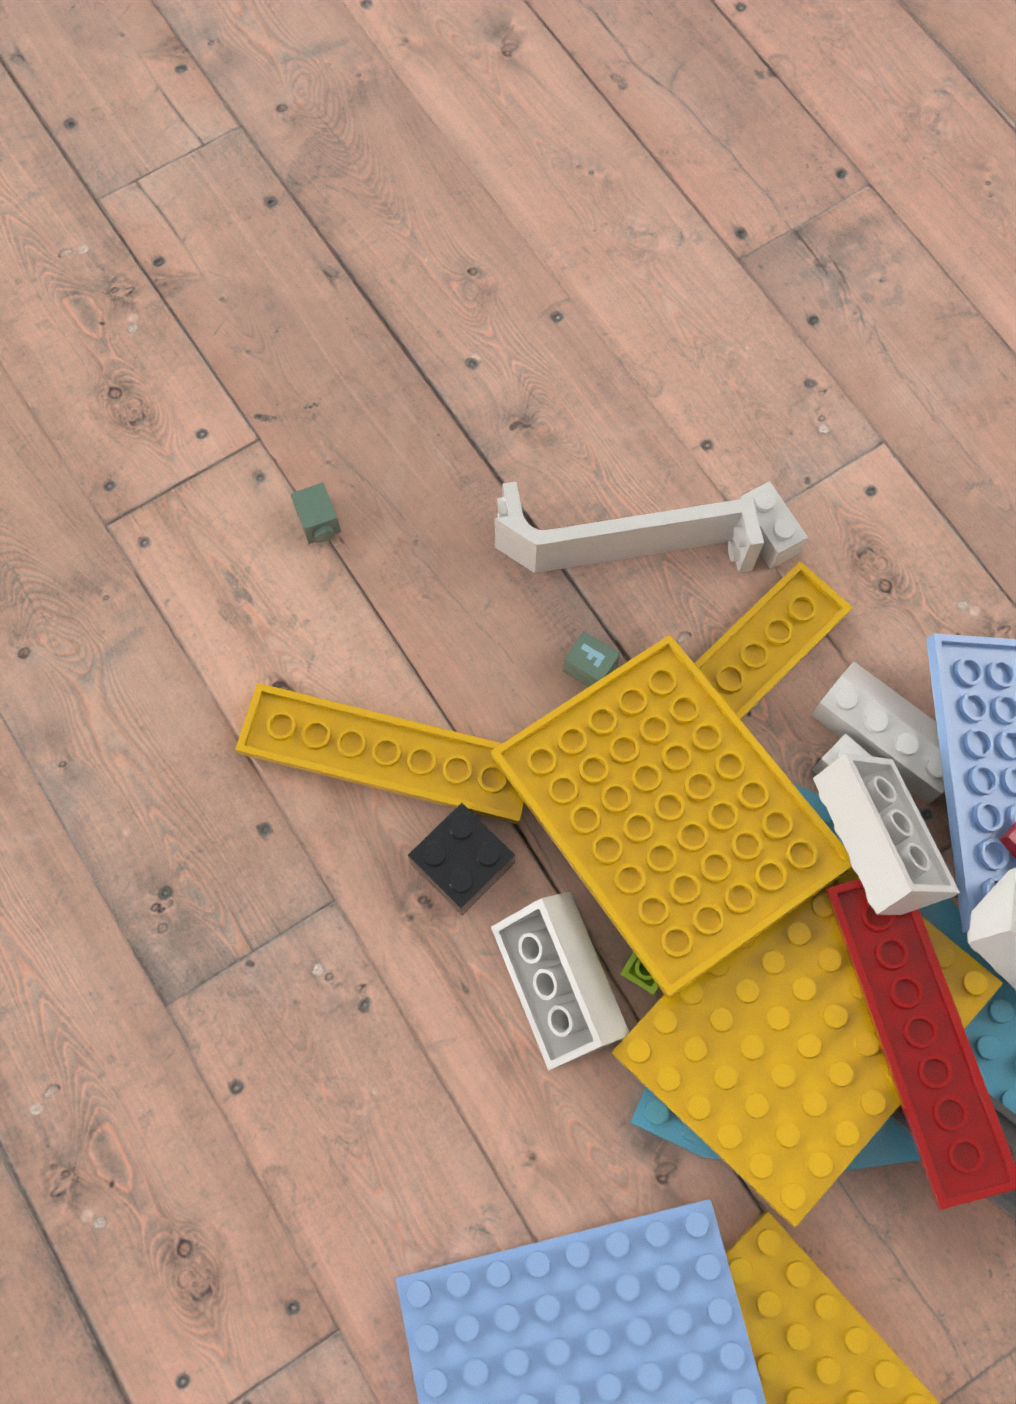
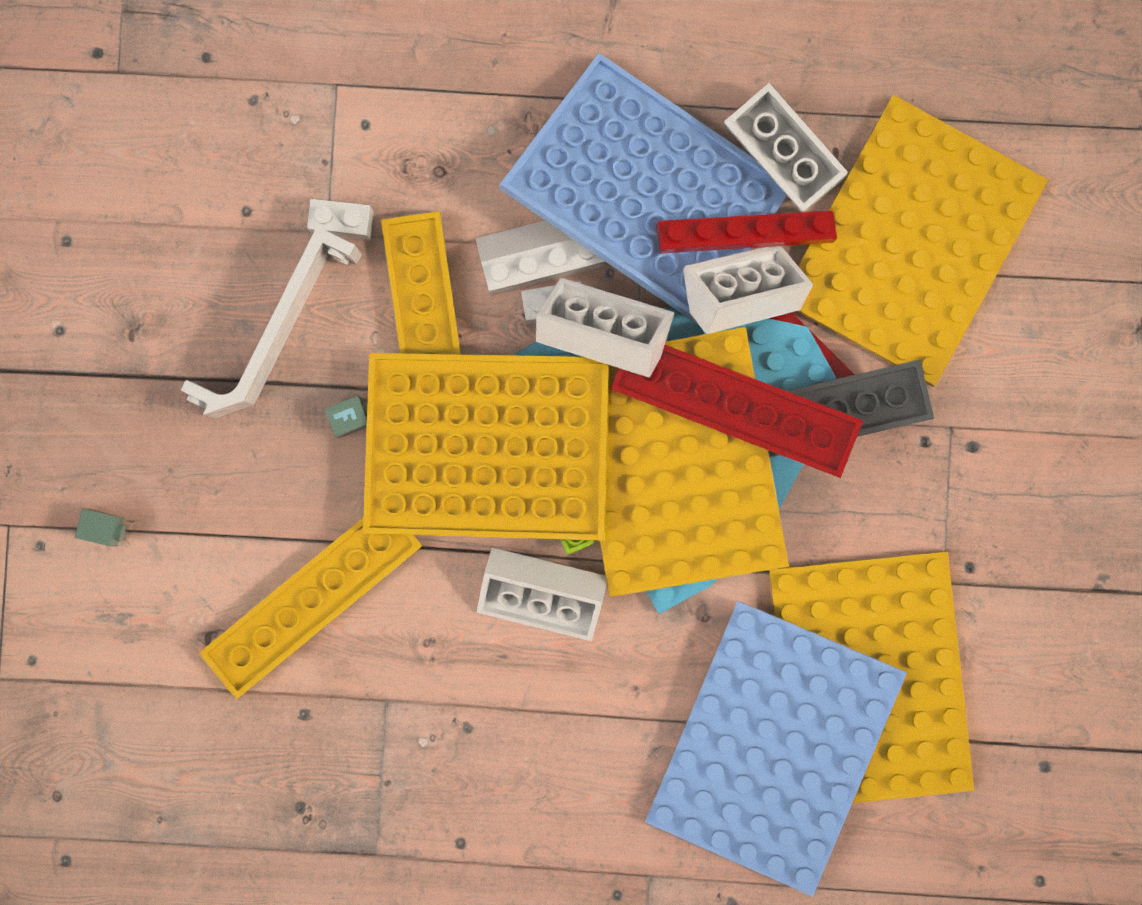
camera: 55 degrees left, 15 degrees up
(462, 858) = (419, 601): black brick -> none

